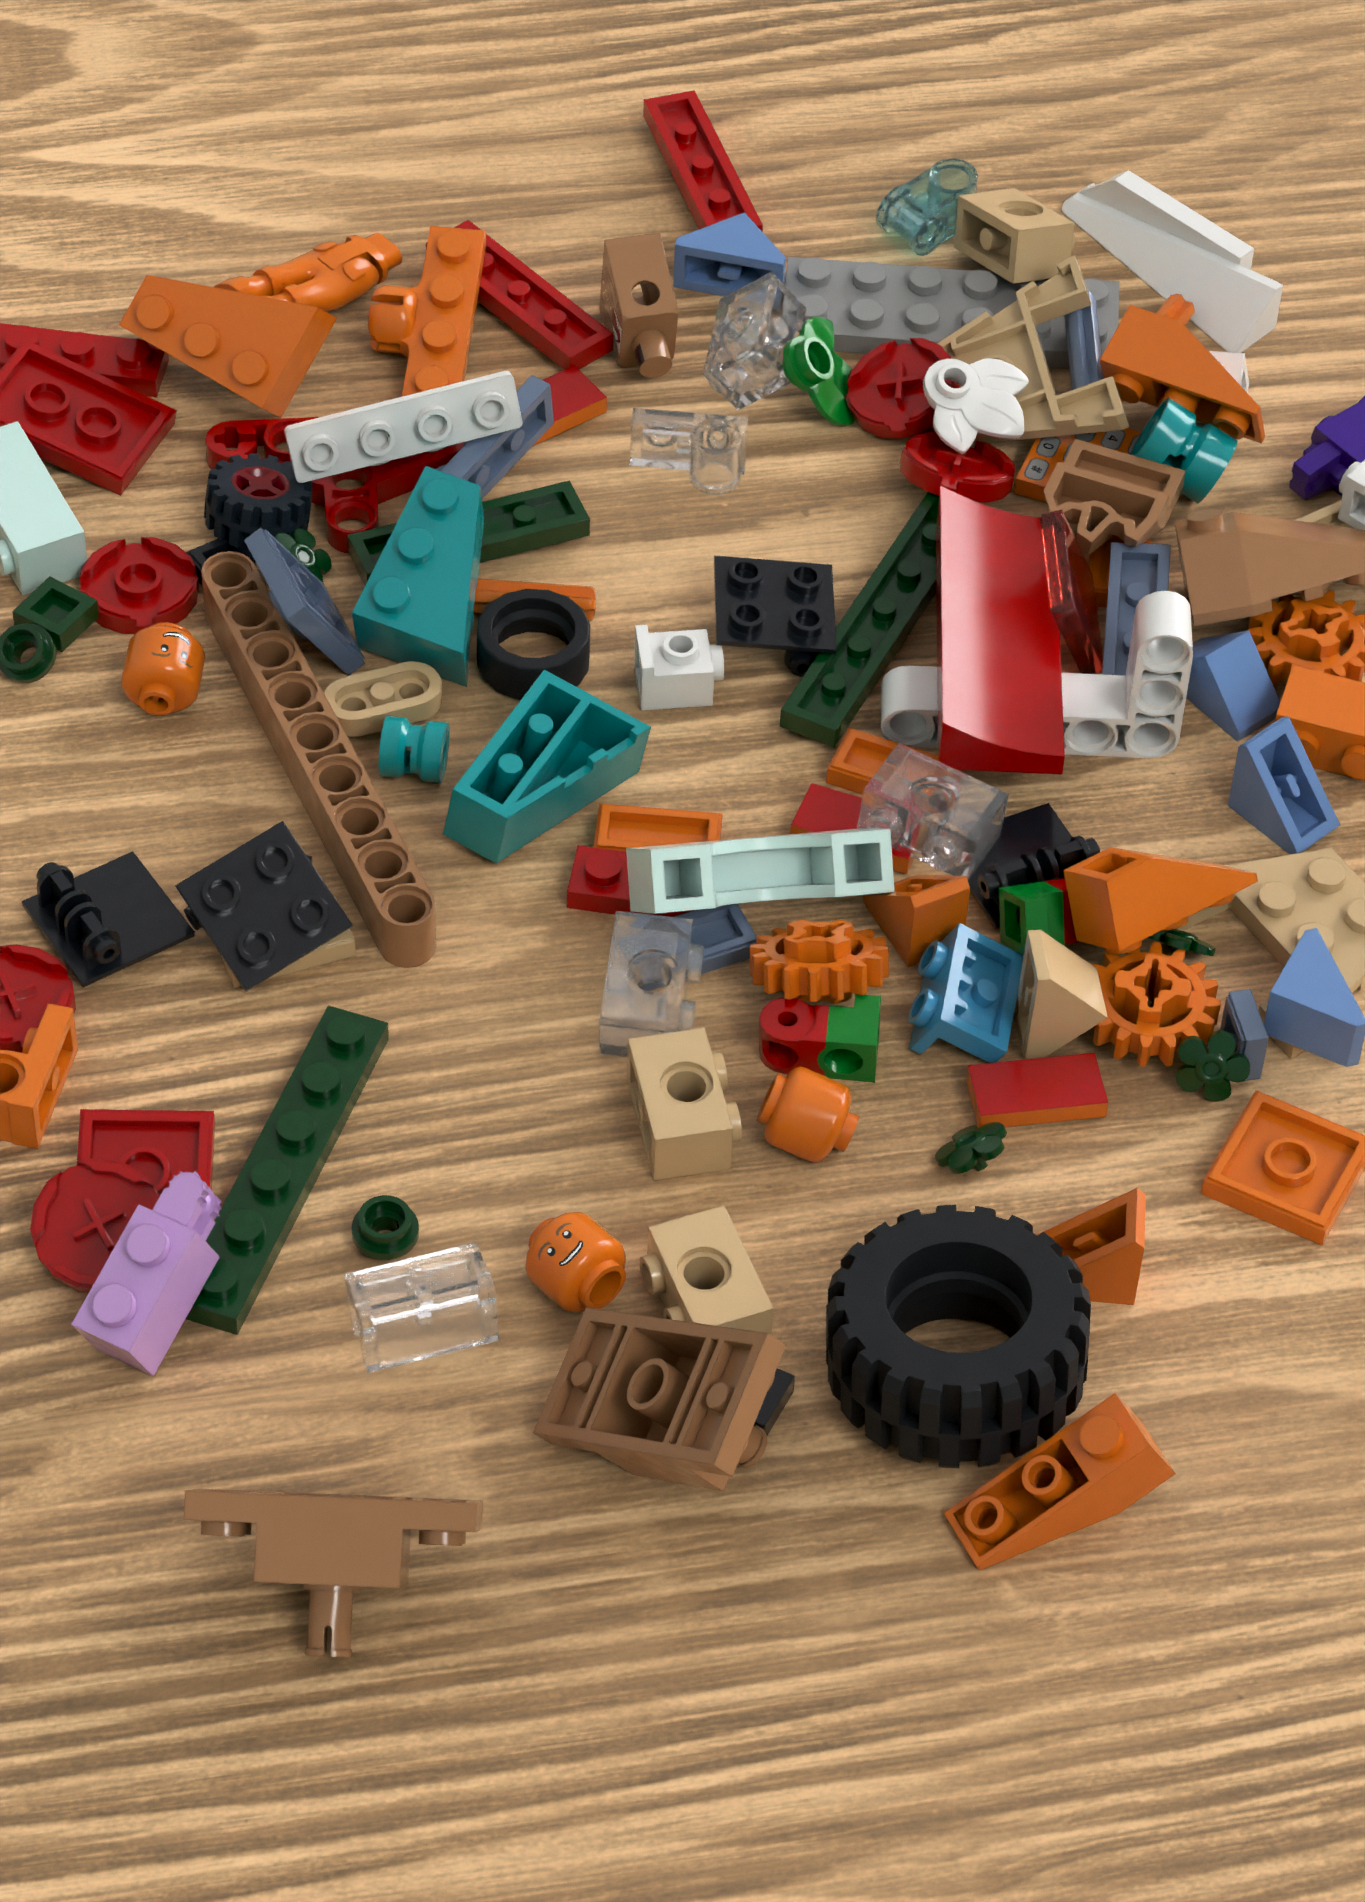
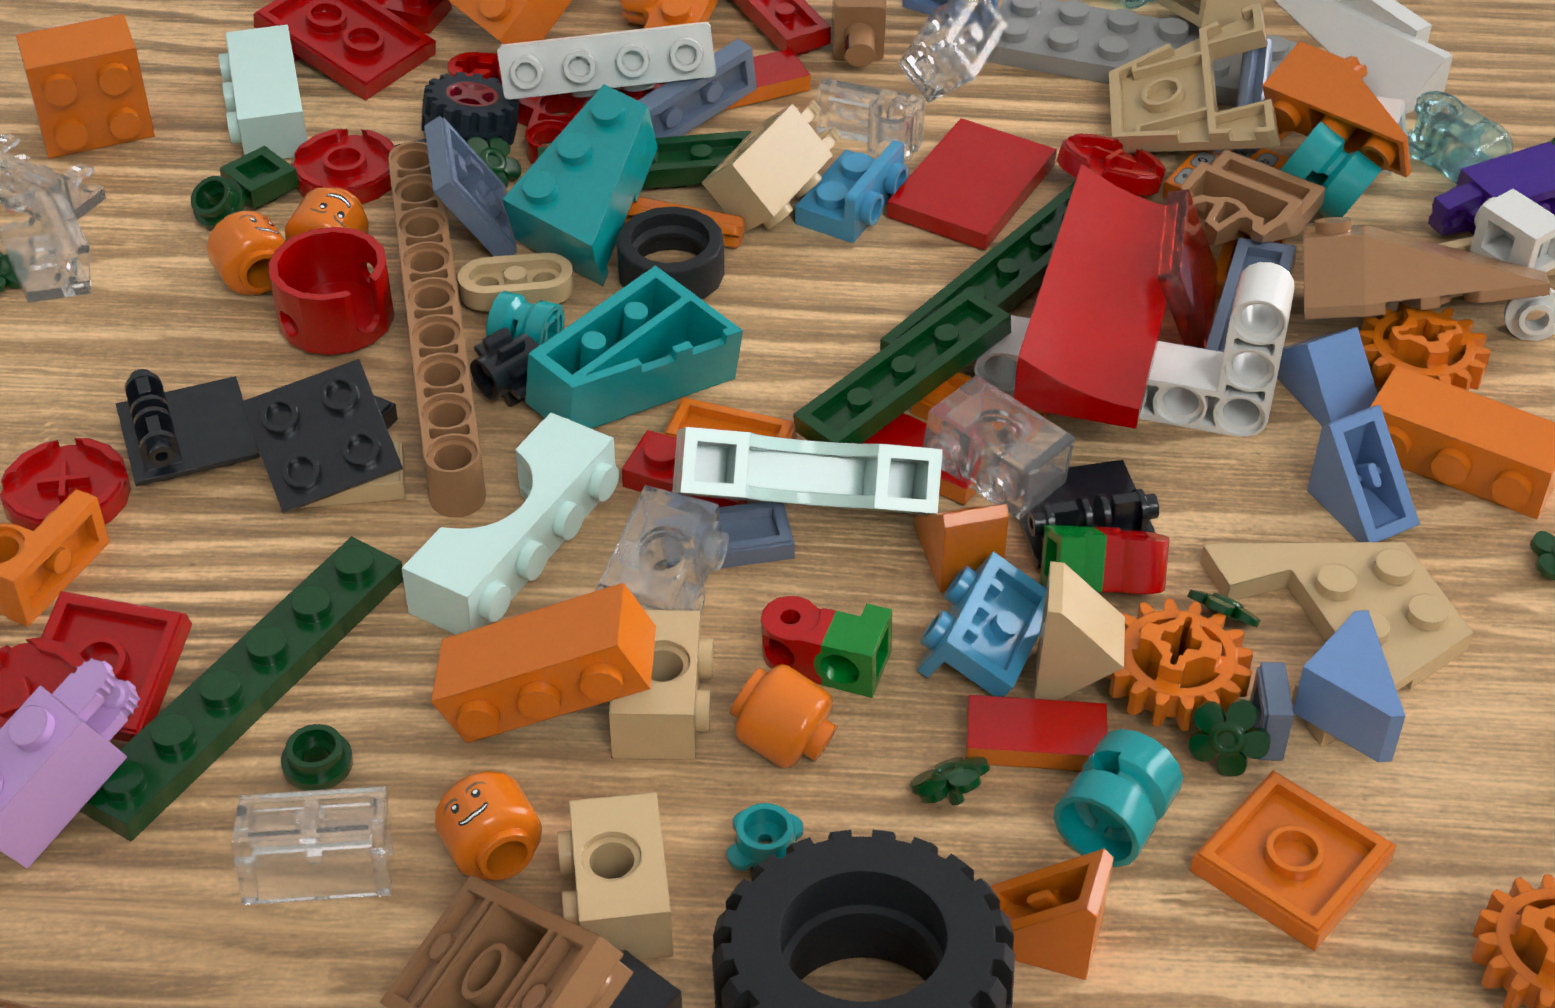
camera: 15 degrees right, 5 degrees down
(93, 710) = (242, 249): none -> orange head
(194, 749) = (326, 292): none -> red piece
(417, 798) = (502, 365): none -> black gear
(464, 1022) = (473, 573): none -> light aqua arch
(580, 1103) = (545, 663): none -> orange brick
(610, 524) = (772, 167): none -> tan hinge
(676, 668) = (795, 292): white brick -> none
(691, 534) = (853, 193): none -> dark azure bracket
(776, 608) = (902, 252): black hinge -> none
(816, 503) = (971, 183): none -> red tile
(818, 370) = (1000, 67): green plate -> none
(819, 961) = (842, 567): orange gear -> none
(820, 746) = (904, 371): none -> dark green plate
(821, 1216) = (760, 824): none -> teal plate
(888, 388) = (1078, 98): red tile -> none
(981, 404) = (1143, 110): white plate -> none
(1128, 1137) = (1118, 796): none -> teal wheel
(1134, 894) = (1178, 549): orange slope -> none
(1303, 386) = (1456, 137): none -> clear light blue piece

